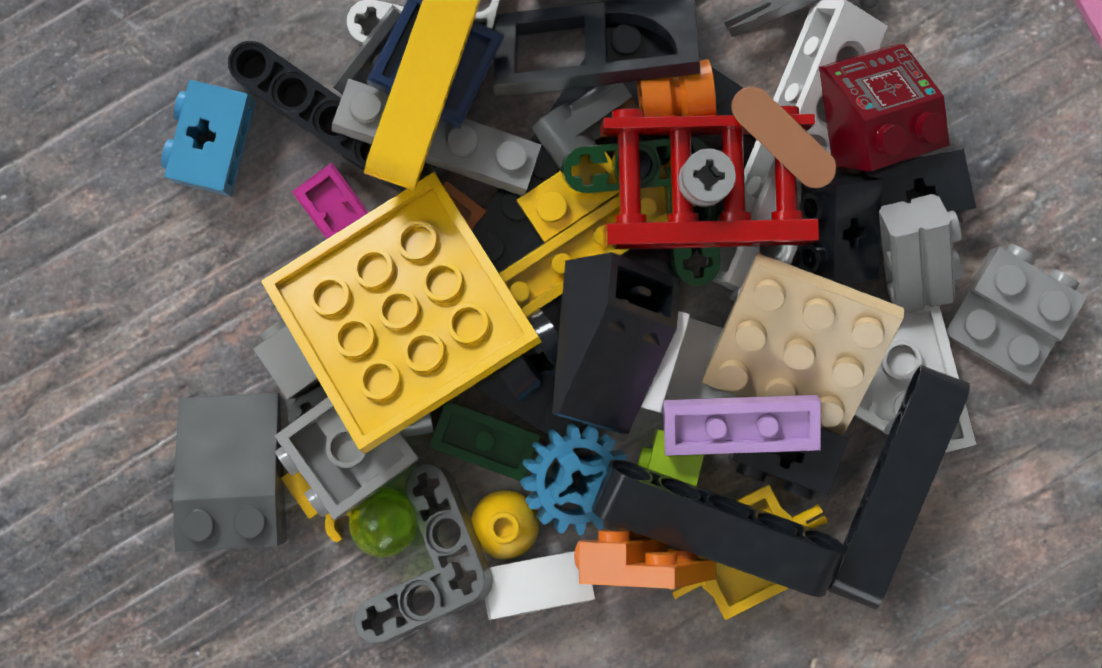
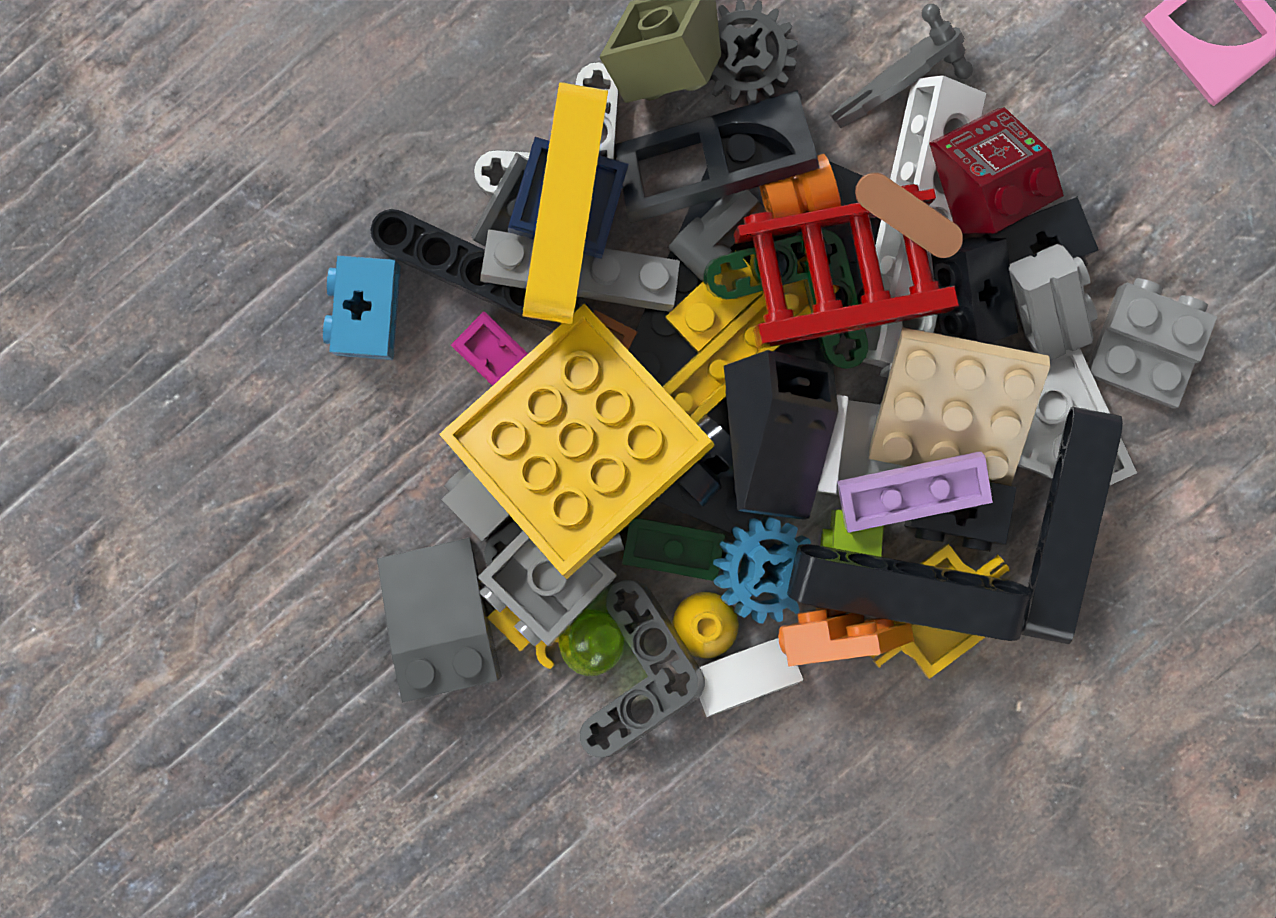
camera: 10 degrees left, 0 degrees up
(695, 187) = (834, 268): light grey wheel -> none

